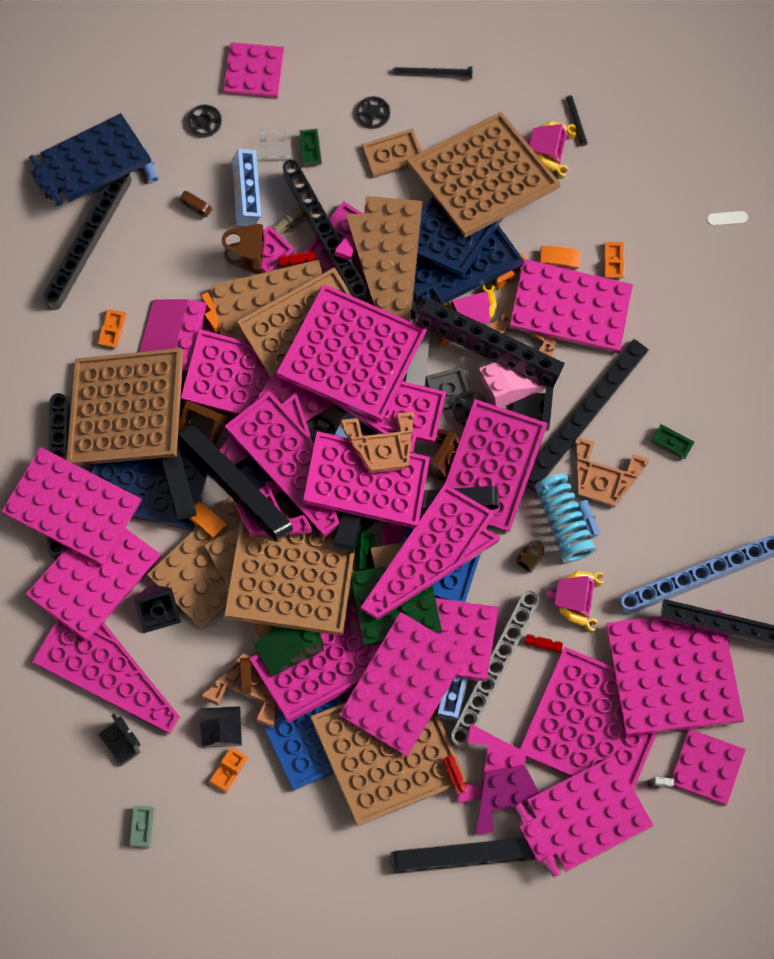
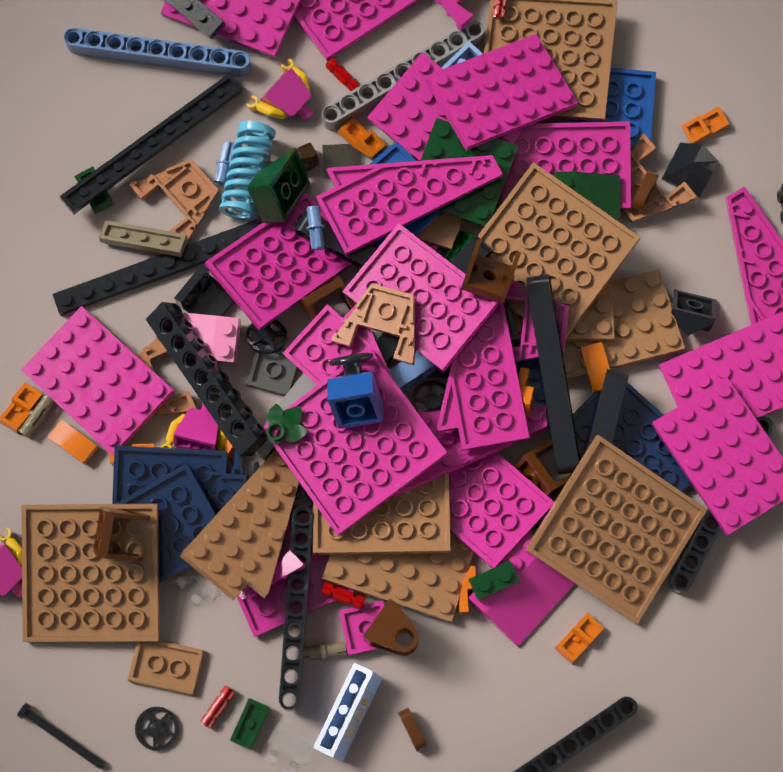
camera: 150 degrees left, 5 degrees up
(193, 320) = (493, 580): none -> dark green plate
(246, 460) = (526, 392): none -> orange slope
(315, 525) = (500, 273): none -> reddish brown hose
(340, 145) = (217, 706): none -> red axle
(369, 373) = (355, 395): none -> blue piece
(407, 338) = (288, 422): none -> dark green plate
(480, 491) = (315, 228): none -> medium blue axle
(486, 203) = (104, 529): none -> reddish brown hose
(500, 576) = (339, 156): none -> clear smoke piece
(502, 599) = (366, 142): none -> orange slope
(529, 513) = (279, 187): none -> dark green slope
(597, 258) = (36, 416): none -> dark tan pin
(609, 424) = (143, 238): none -> dark tan plate
(652, 499) = (151, 143): none -> black plate

